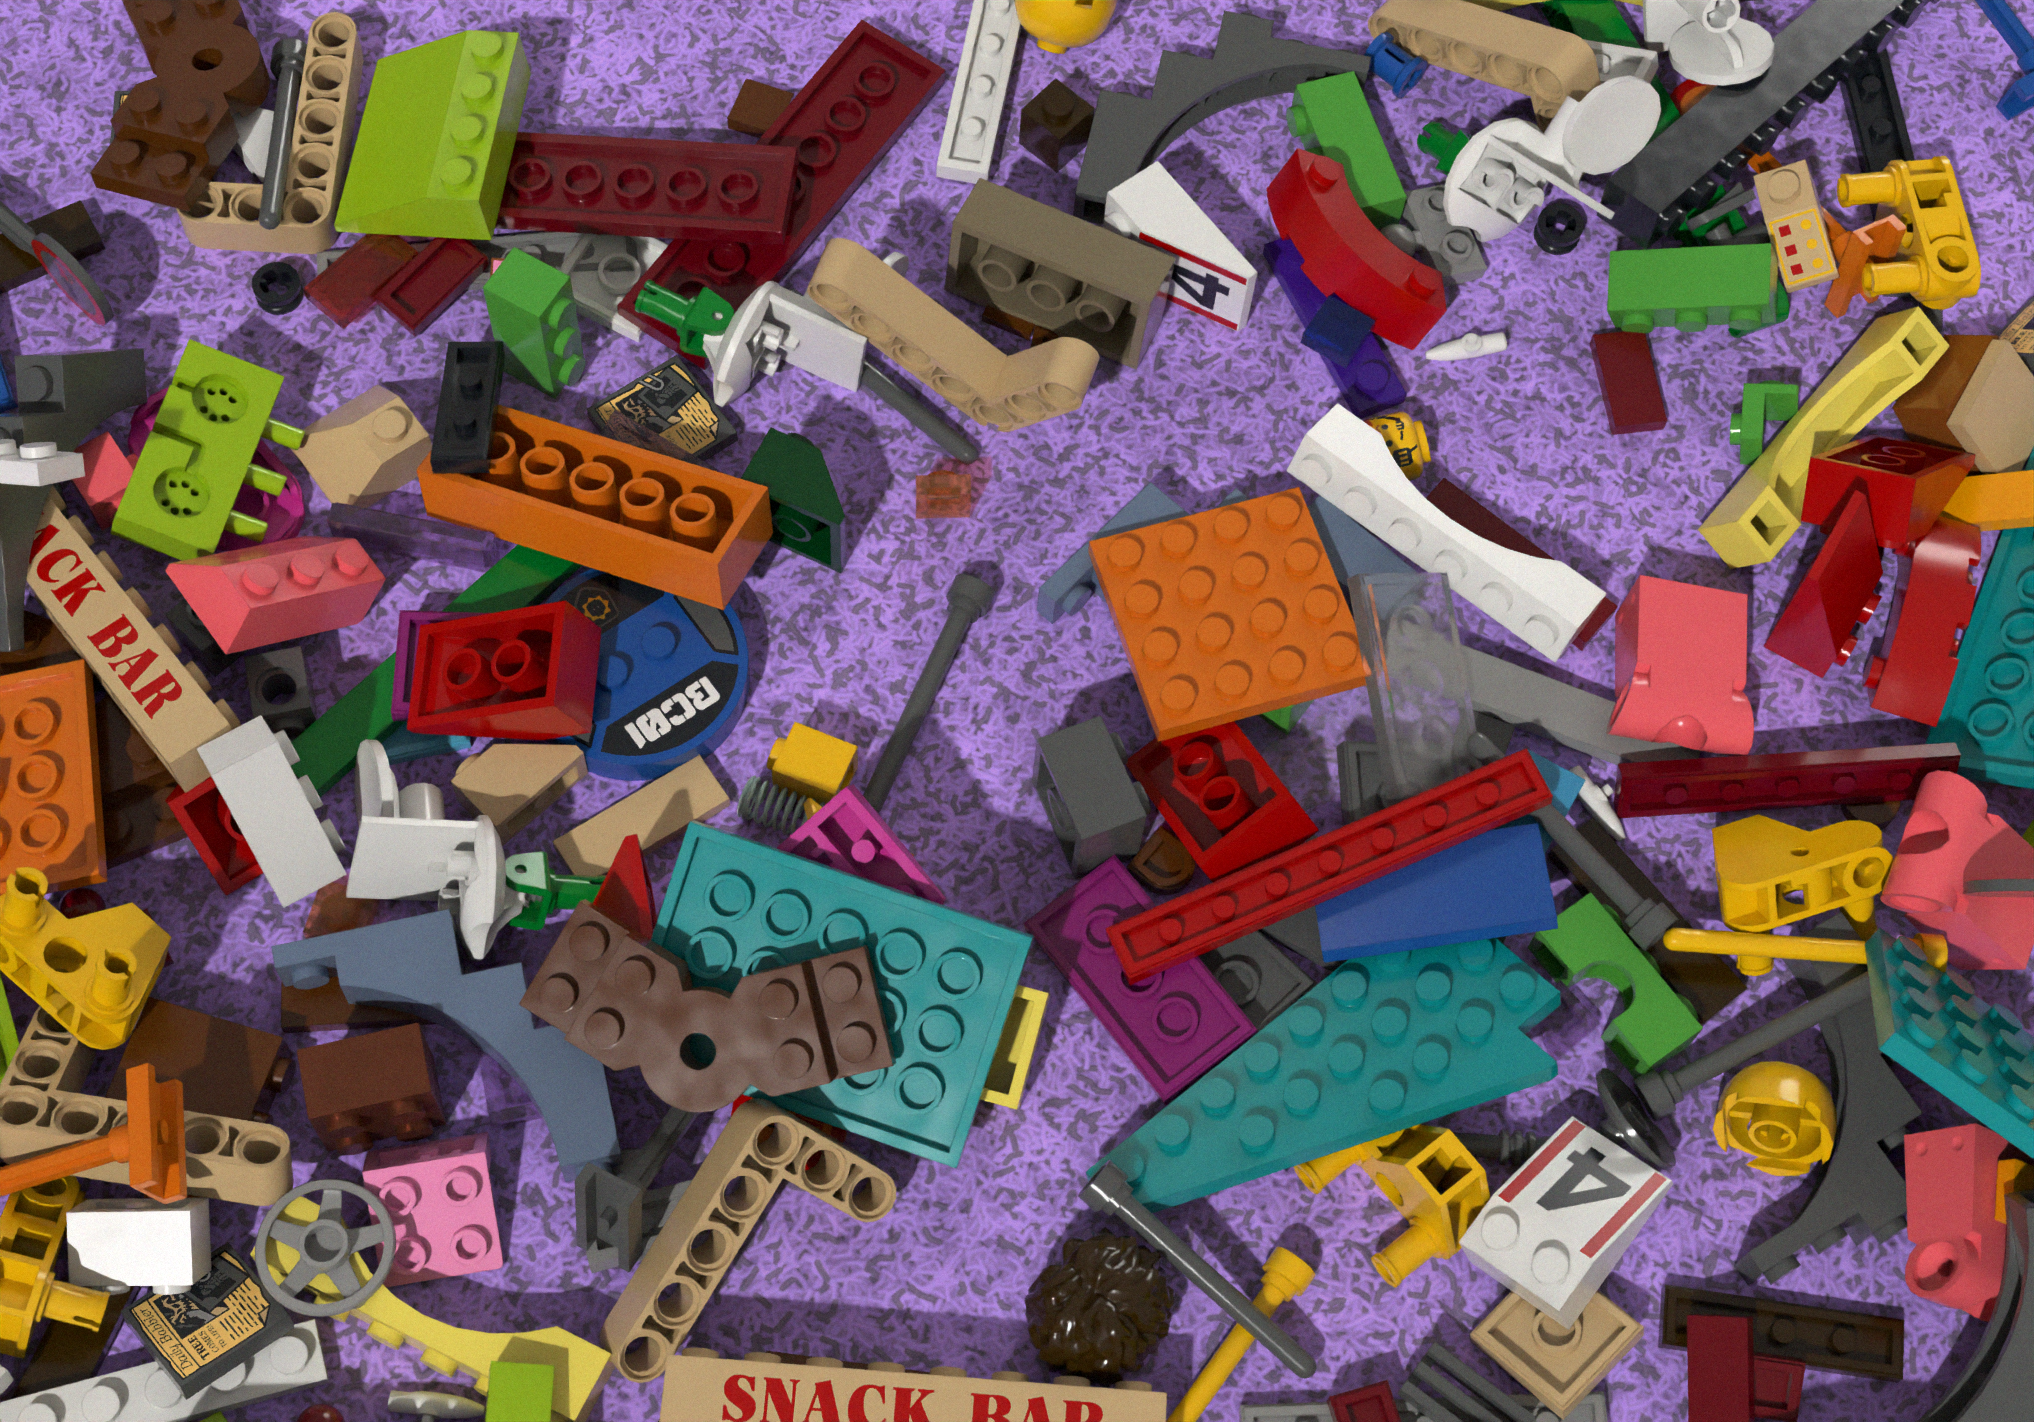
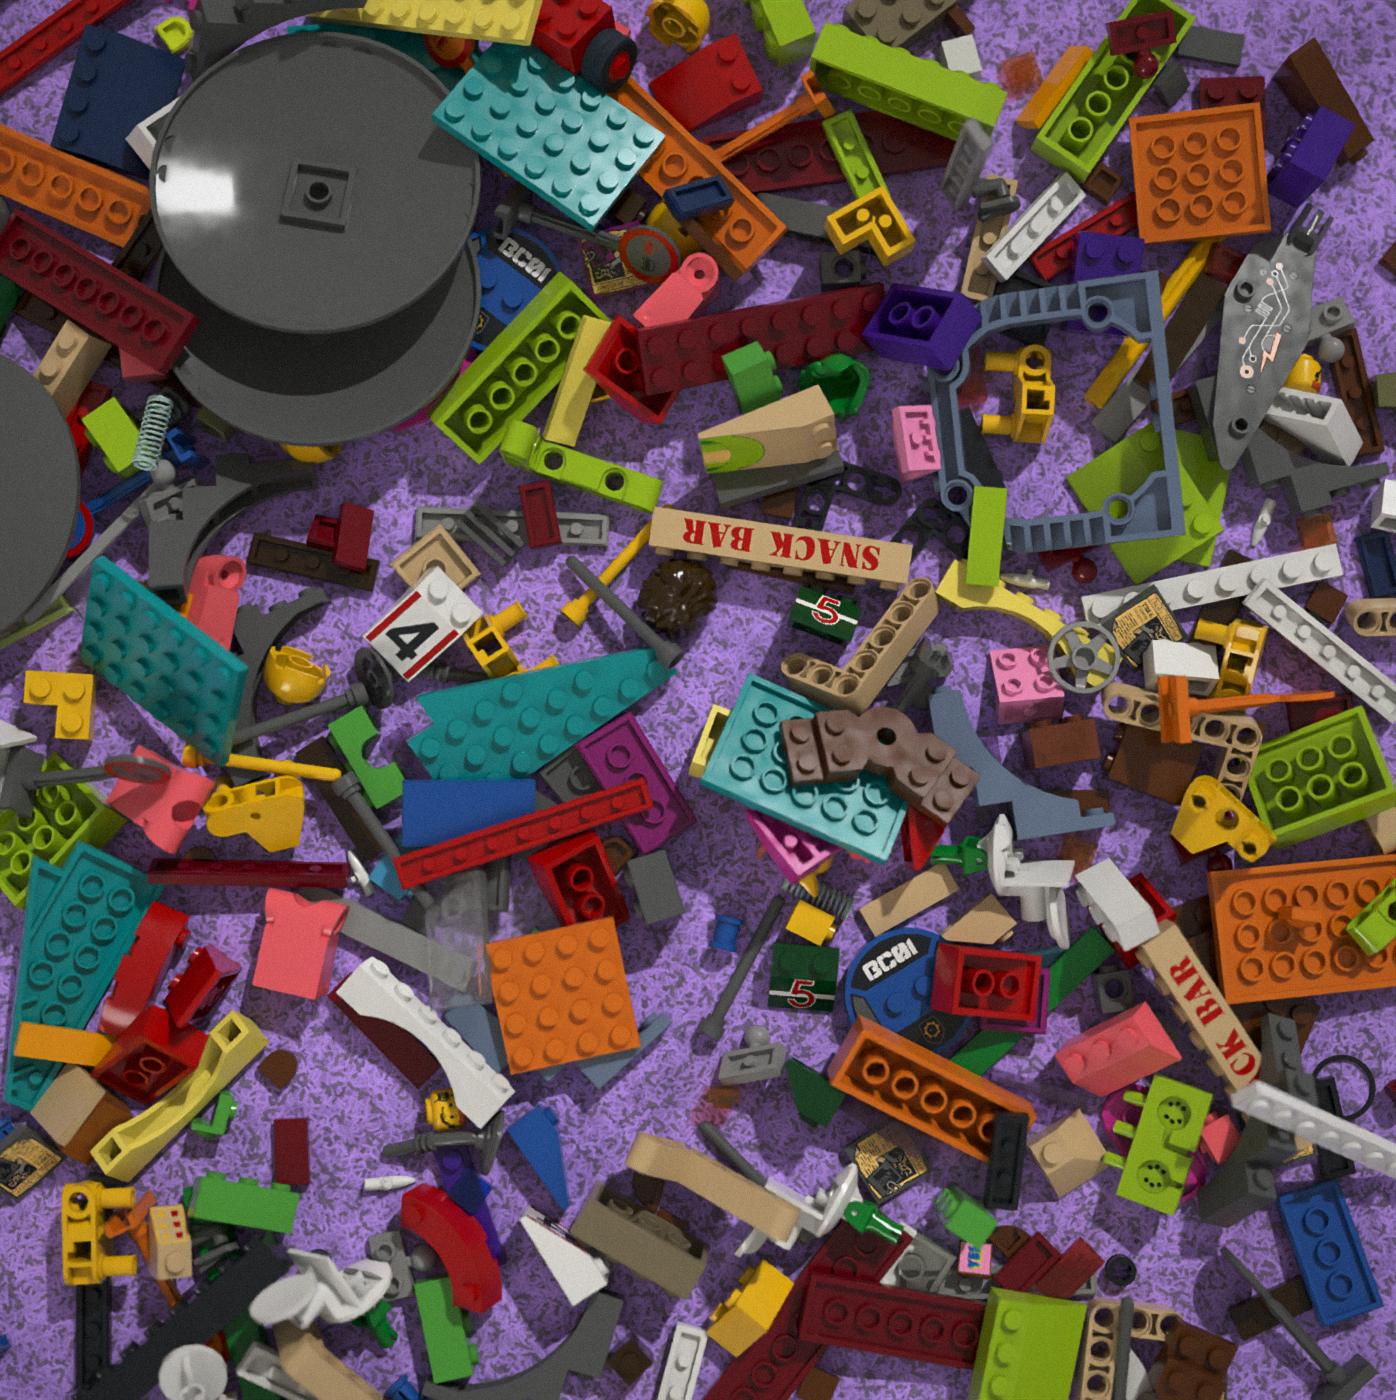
camera: 175 degrees left, 20 degrees up
(461, 321) = (1008, 1239): none -> reddish brown tile
(820, 1294) = (824, 616): none -> dark green slope
(821, 686) = (803, 976): none -> dark green slope
(872, 189) = (749, 1308): none -> yellow brick
(896, 539) = (753, 1063): none -> light grey plate
(958, 743) = (725, 933): none -> blue bush
(1232, 407) = (541, 1144): none -> blue slope
(1322, 394) = (485, 1140): none -> dark grey dish
(1672, 499) = (279, 1067): none -> reddish brown tile

